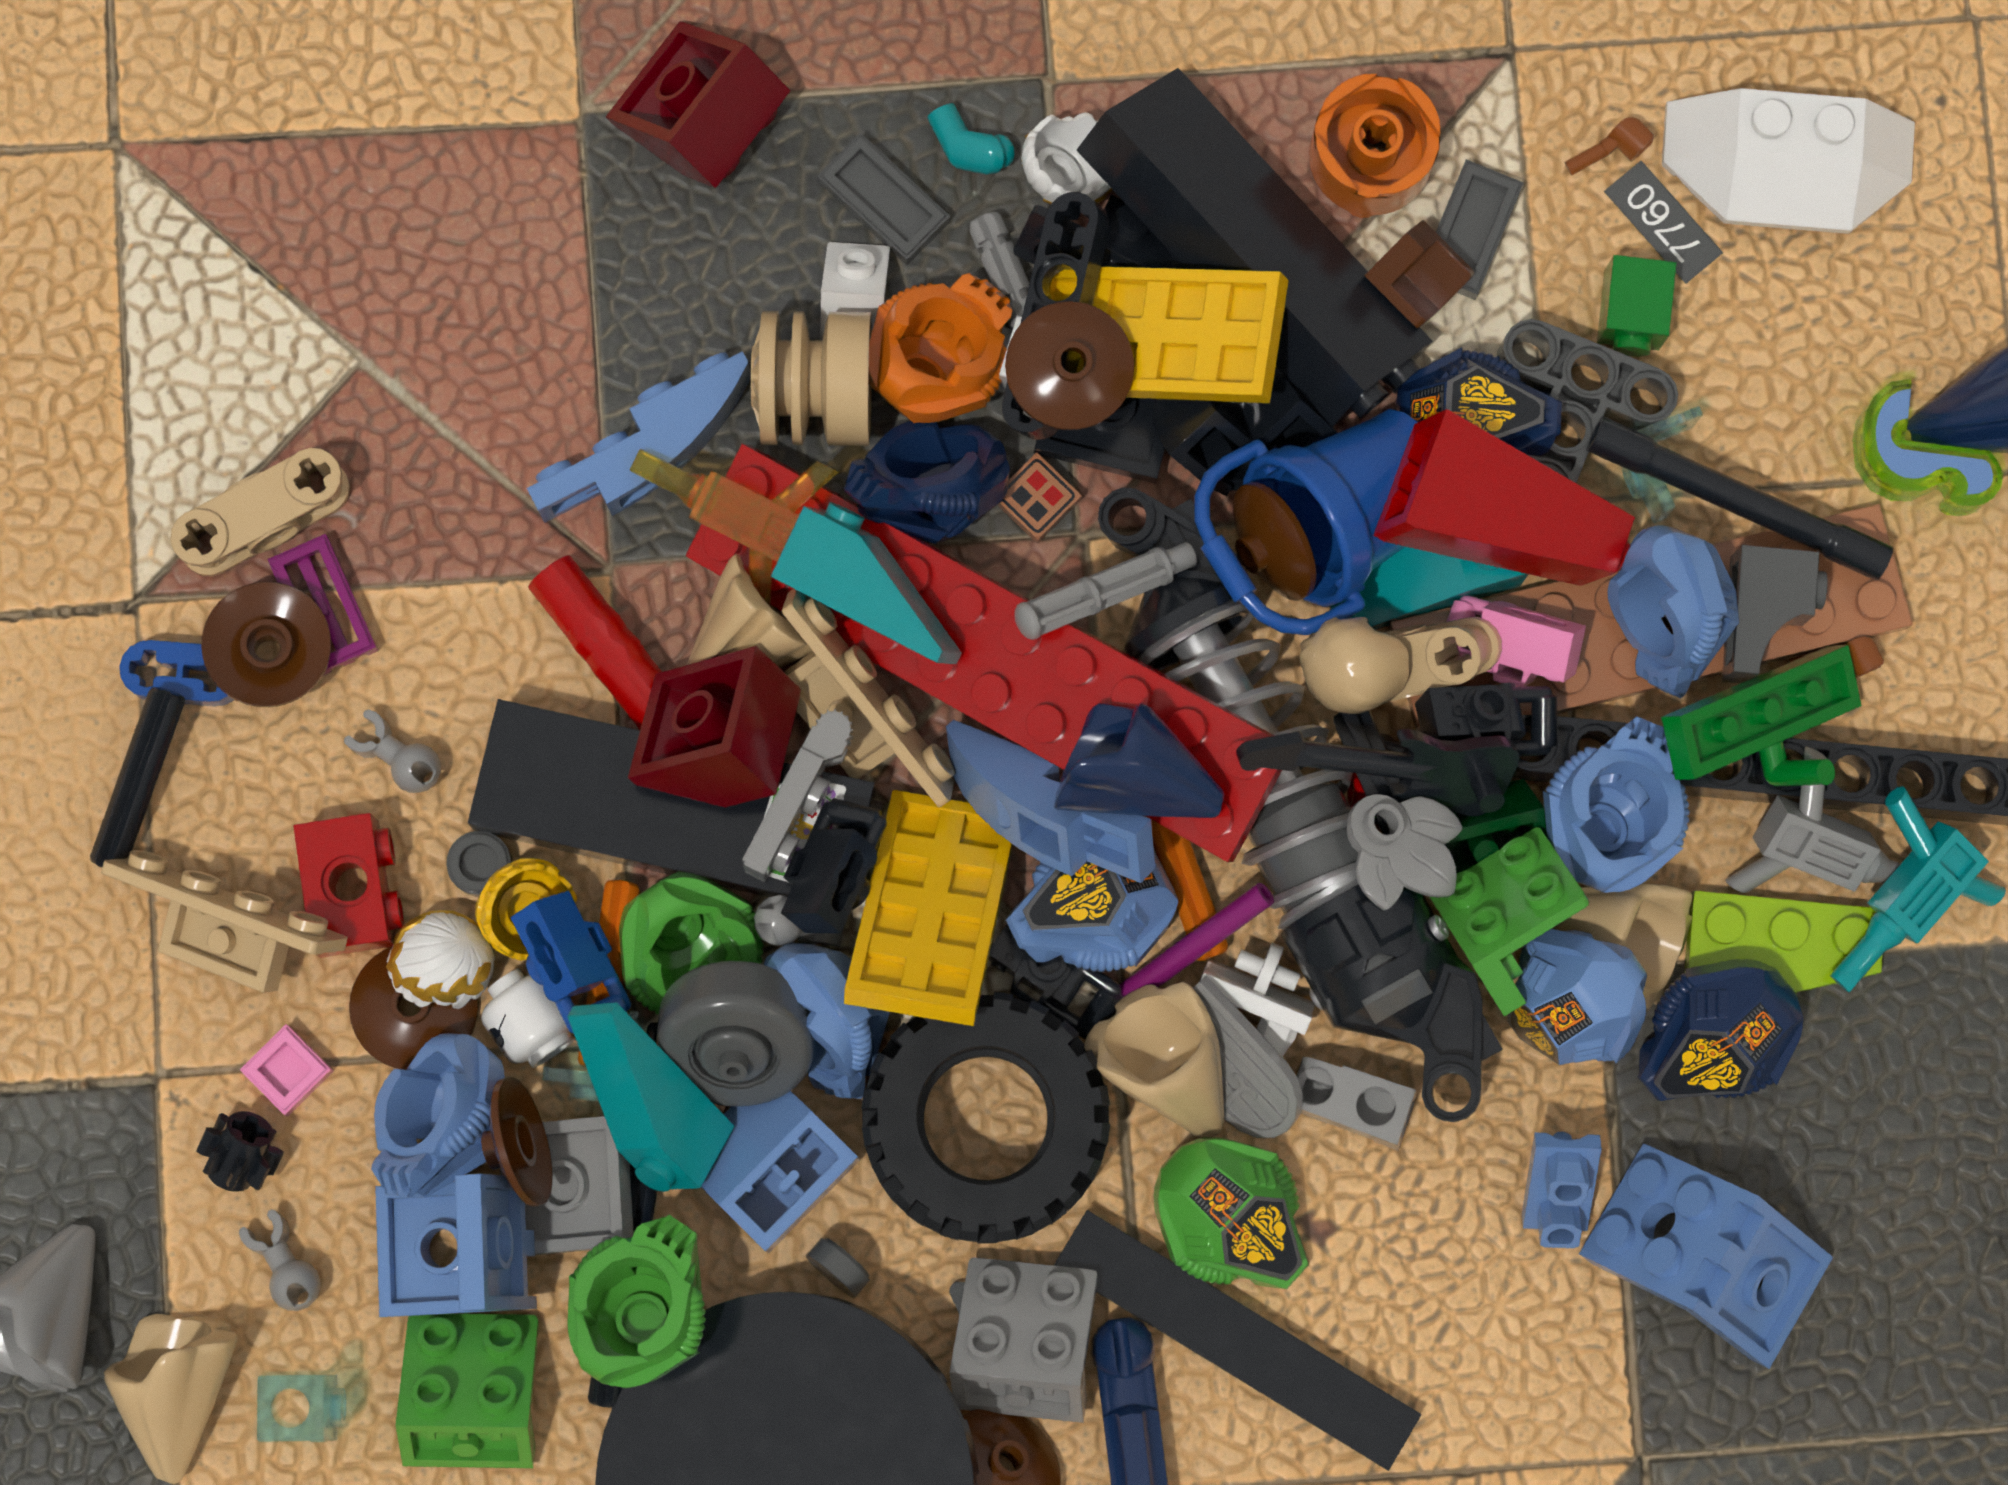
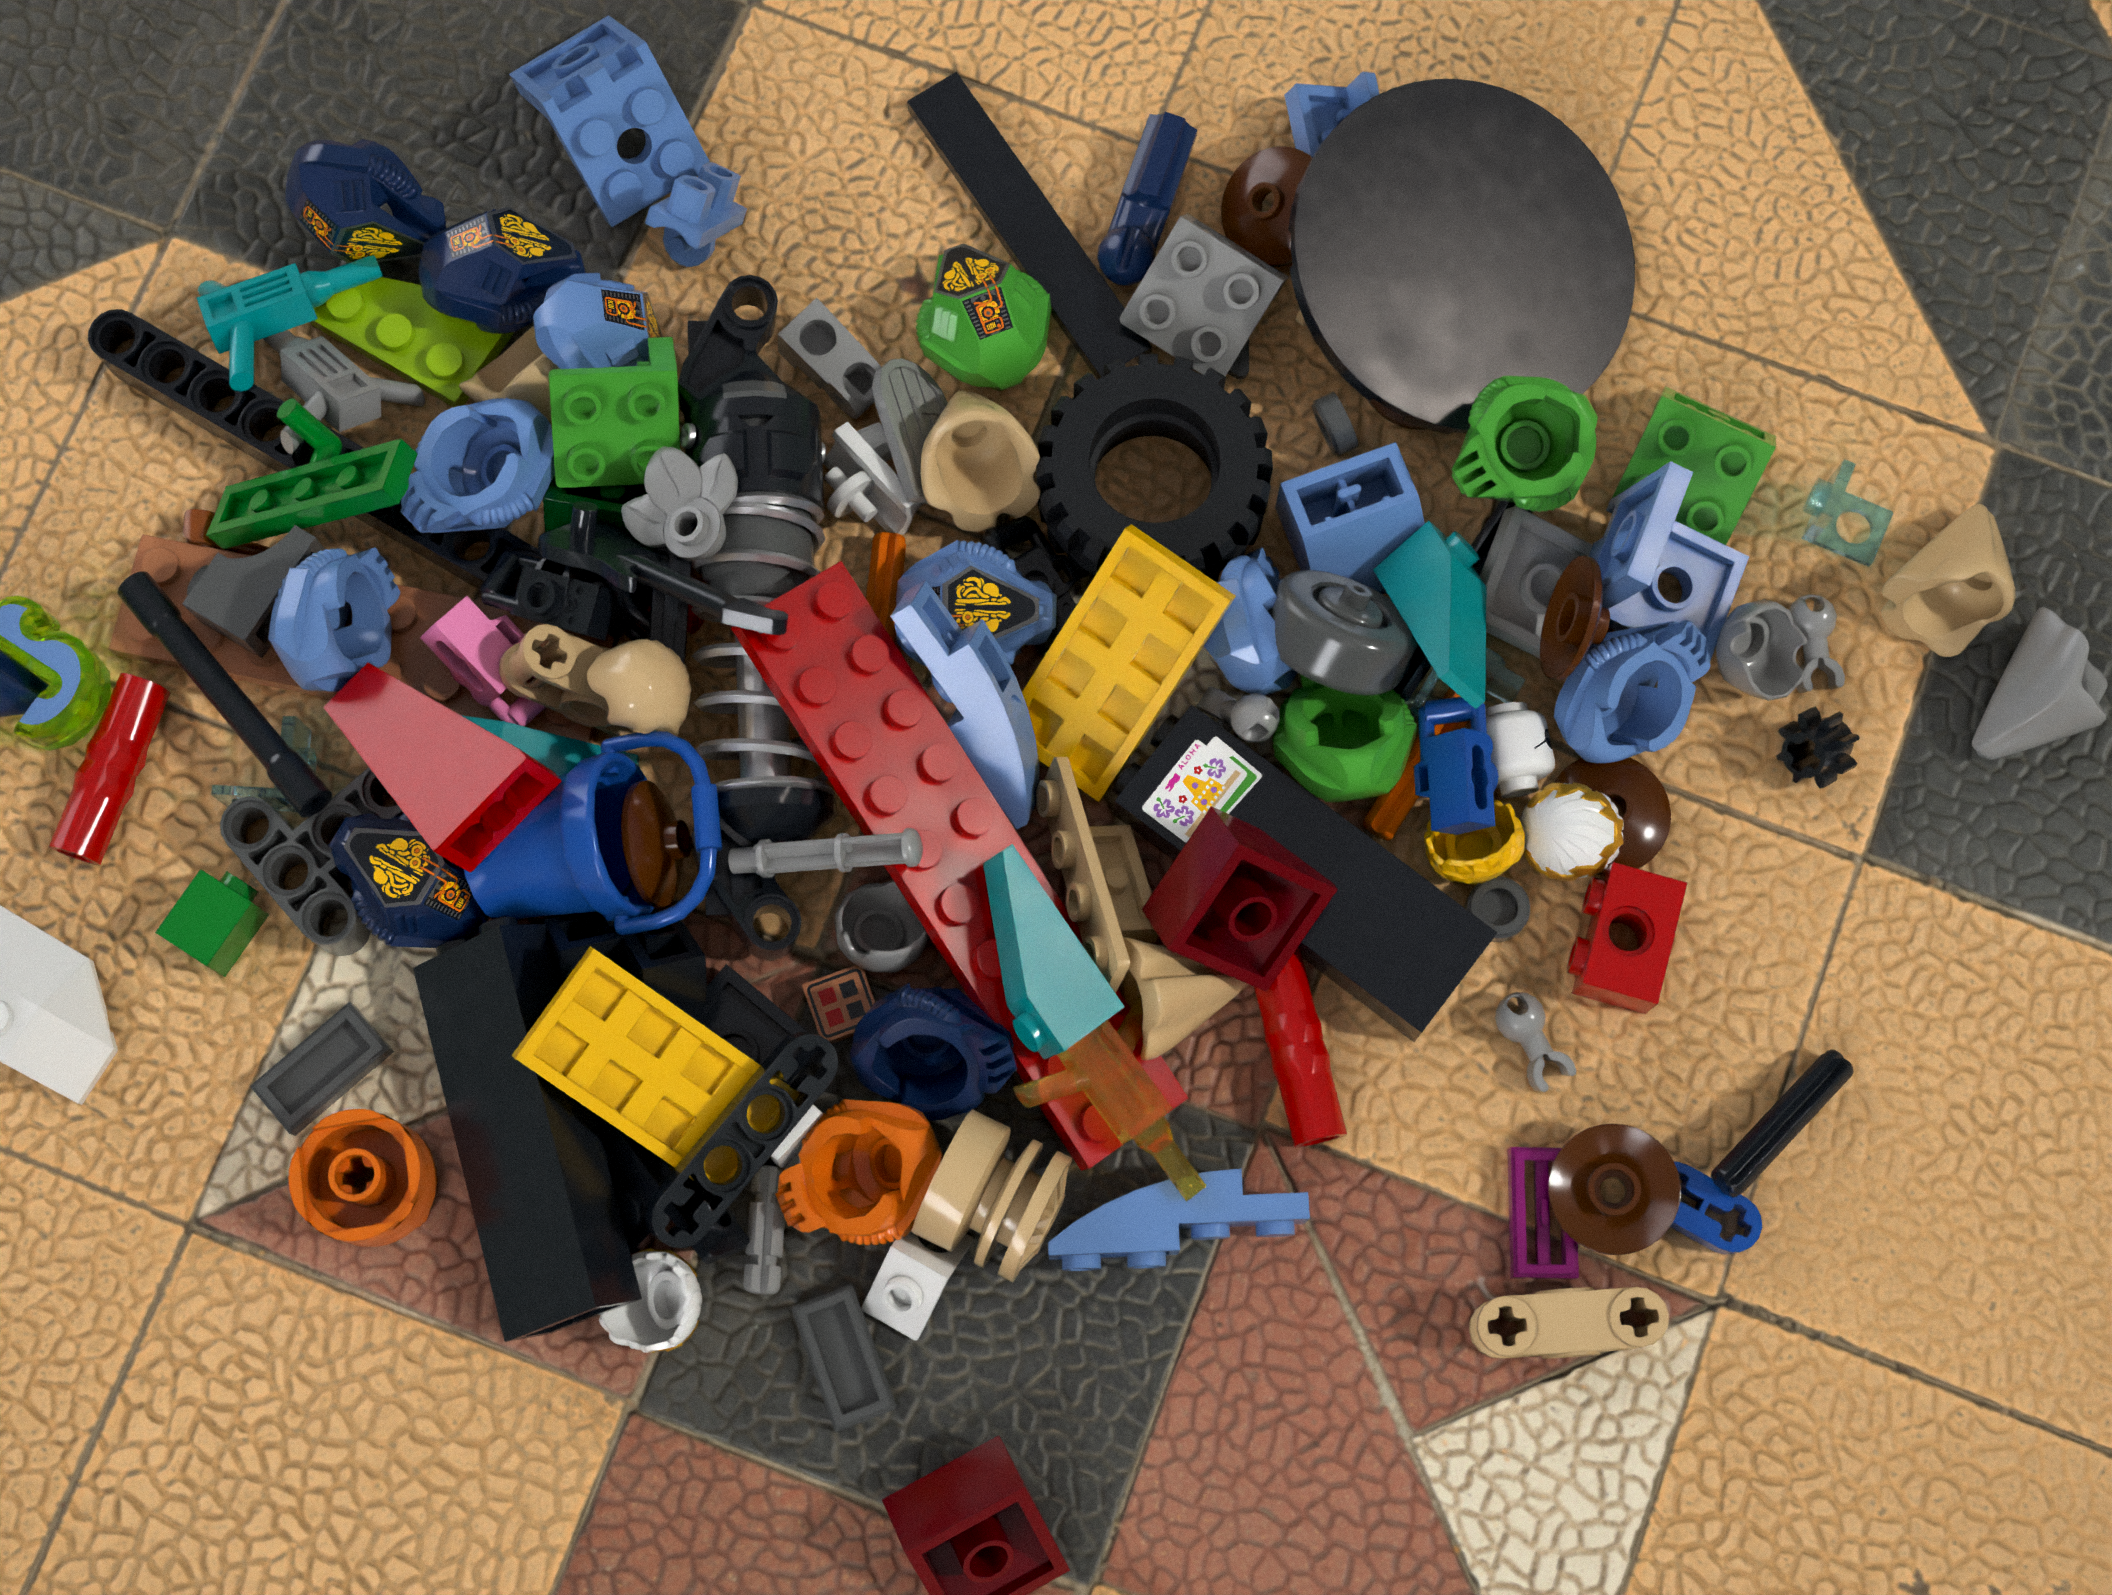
camera: 150 degrees left, 5 degrees down
(221, 930) = (1758, 947): tan bracket -> none
(286, 1070) = (1745, 807): bright pink tile -> none
(330, 1221) = (1760, 650): none -> light grey hair
(799, 792) = (1182, 810): light grey hinge -> none
(833, 867) = (1189, 729): black piece -> none
(969, 149) = (741, 1366): teal arm -> none
(1033, 563) = (879, 928): none -> light grey hair
(1062, 397) = (771, 1101): reddish brown dish -> none
(1135, 767) = (884, 669): dark blue hat -> none
(1201, 939) = (891, 536): magenta piece -> none
(1420, 274) = (391, 1038): reddish brown panel -> none
(1628, 136) = (131, 1084): dark orange hand -> none
(1663, 221) = (146, 996): dark grey sticker -> none
(1810, 396) = (110, 769): none -> red axle
(1889, 1031) = (339, 197): none -> dark blue helmet

